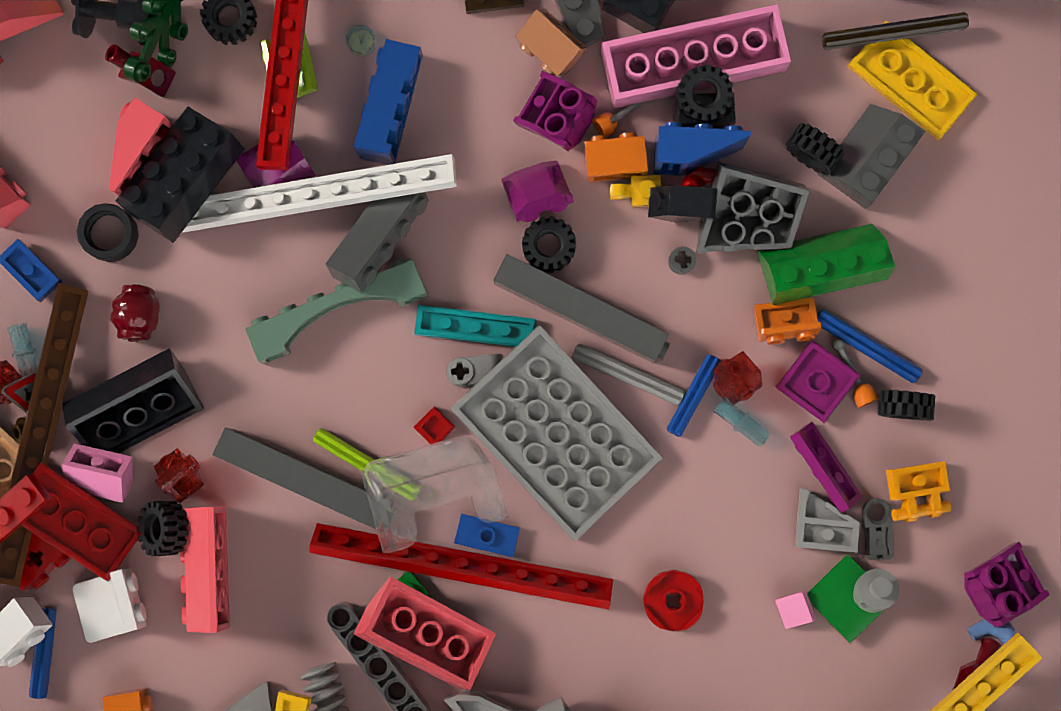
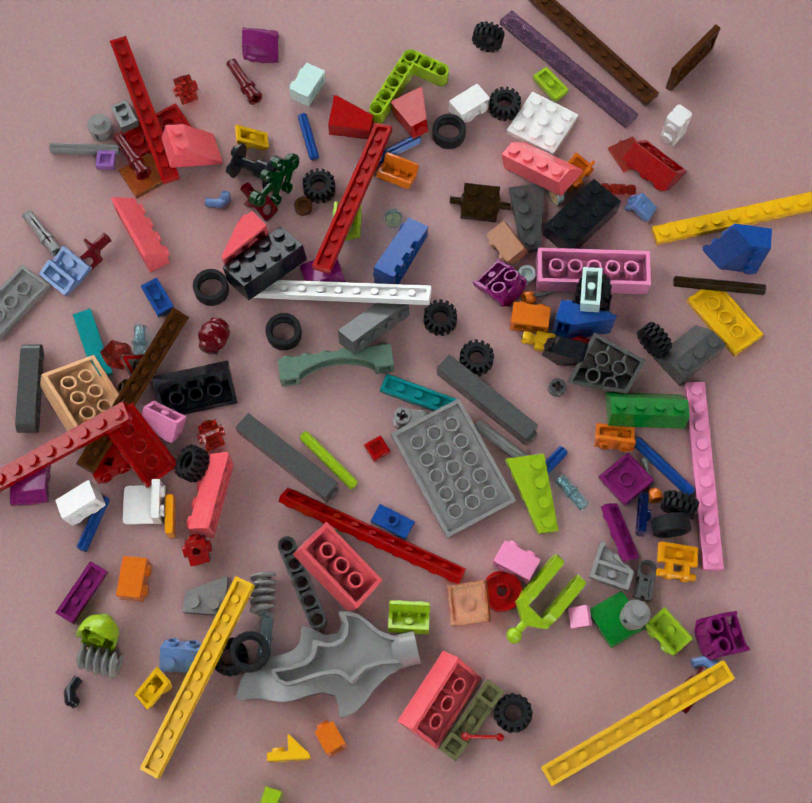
camera: 10 degrees right, 15 degrees down
(80, 83) = (220, 202): none -> medium blue arm
(154, 614) = (170, 515): none -> light orange tile
(210, 657) = (196, 556): none -> red brick
(213, 56) = (303, 206): none -> reddish brown tile
(235, 255) = (283, 318): none -> black tyre
(428, 479) = (365, 470): clear windscreen -> none
(485, 208) = (440, 327): none -> black tyre
(537, 190) = (477, 322): magenta slope -> none
(548, 676) = (408, 617): none -> lime bracket
(593, 83) = (528, 272): none -> light aqua tile
(630, 632) = (468, 603): none -> clear orange tile
(682, 426) = (535, 490): none -> lime wing
(684, 551) = (516, 561): none -> bright pink brick
(703, 103) = (591, 289): none -> light aqua brick
(737, 378) = (575, 463): clear red brick -> none
(757, 606) = (556, 608): none -> lime piece
(854, 431) = (643, 514): none -> clear blue plate
(900, 440) = (671, 525): none -> black tyre
(928, 600) = (668, 632): none -> lime bracket
(930, 344) = (704, 477): none -> bright pink plate

